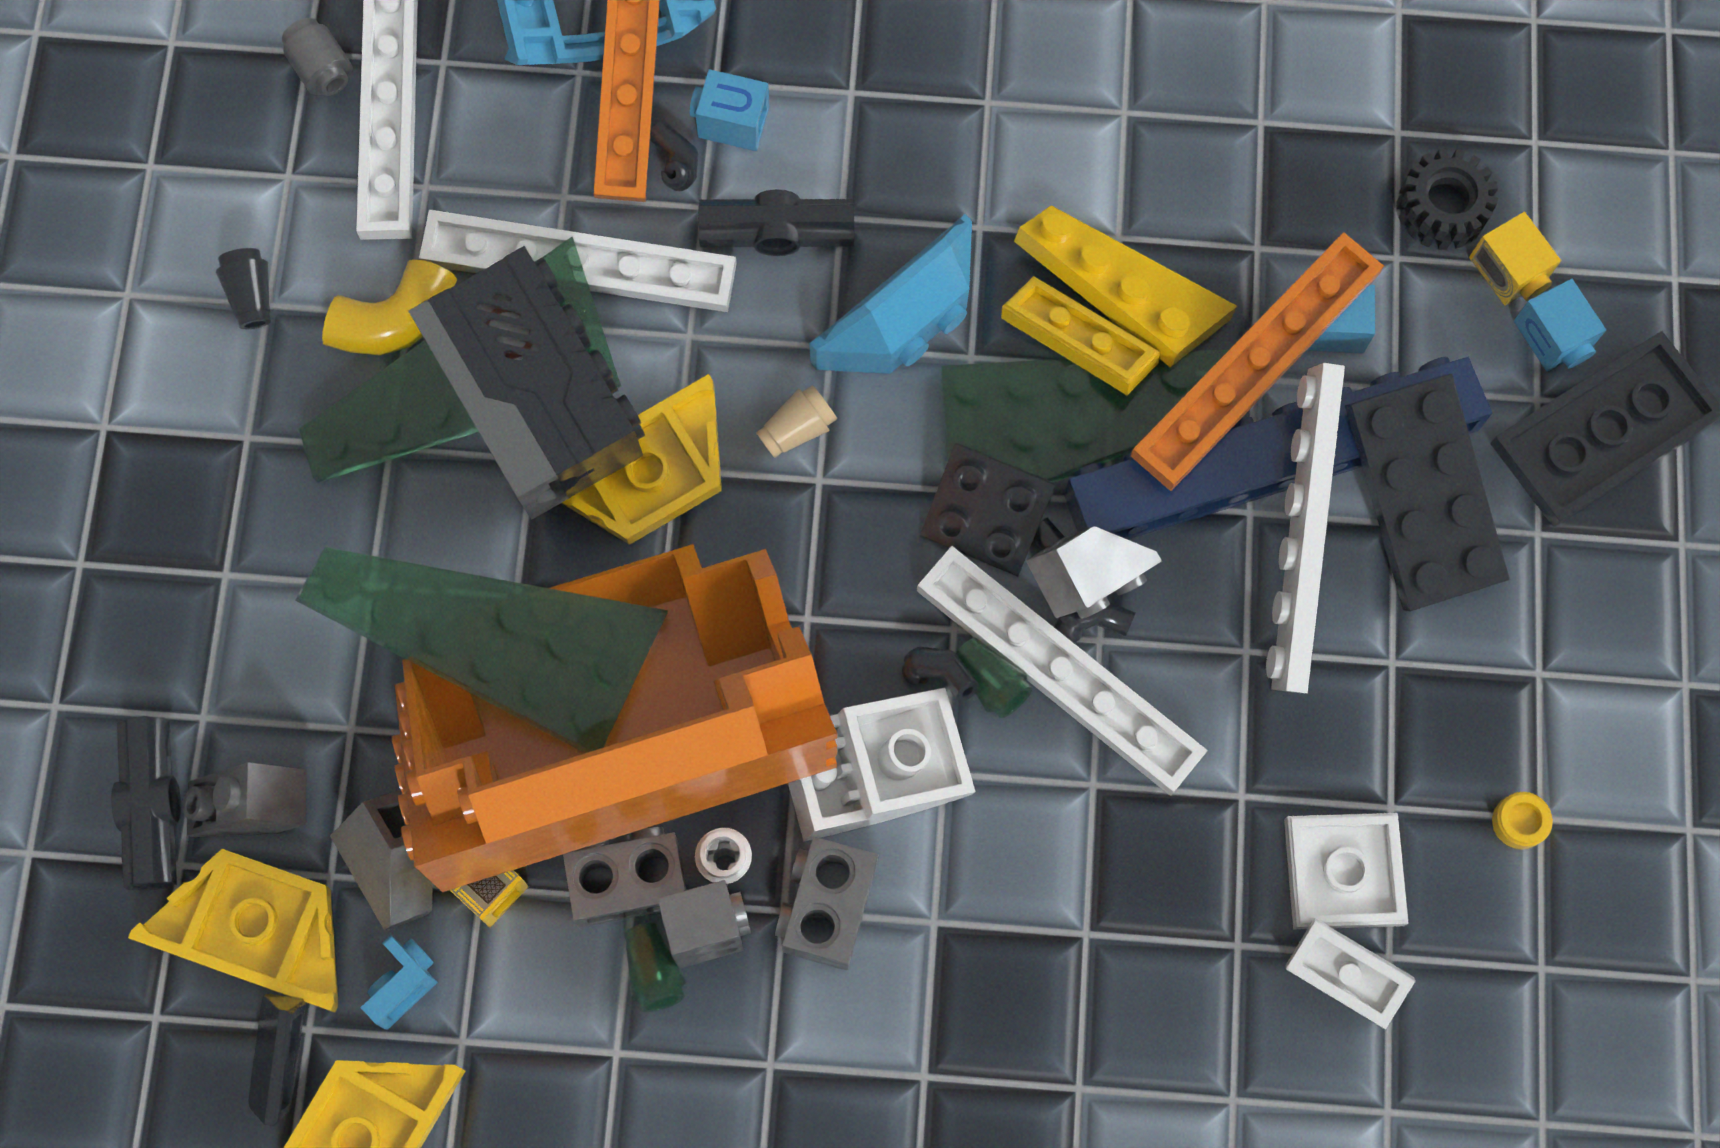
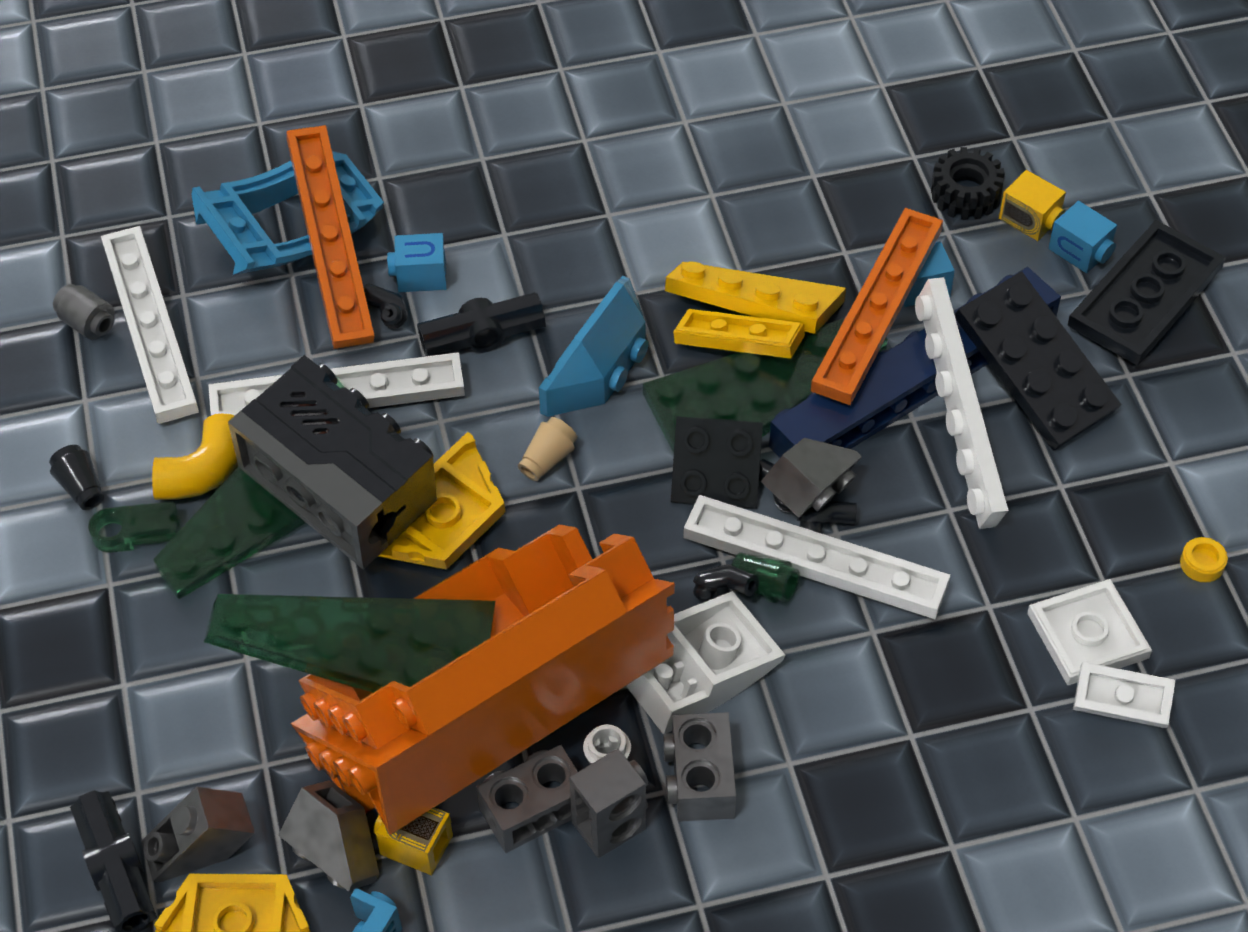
camera: 15 degrees left, 20 degrees down
(300, 373) = (139, 526): none -> clear green piece
(652, 969) = (579, 859): clear green cone -> none

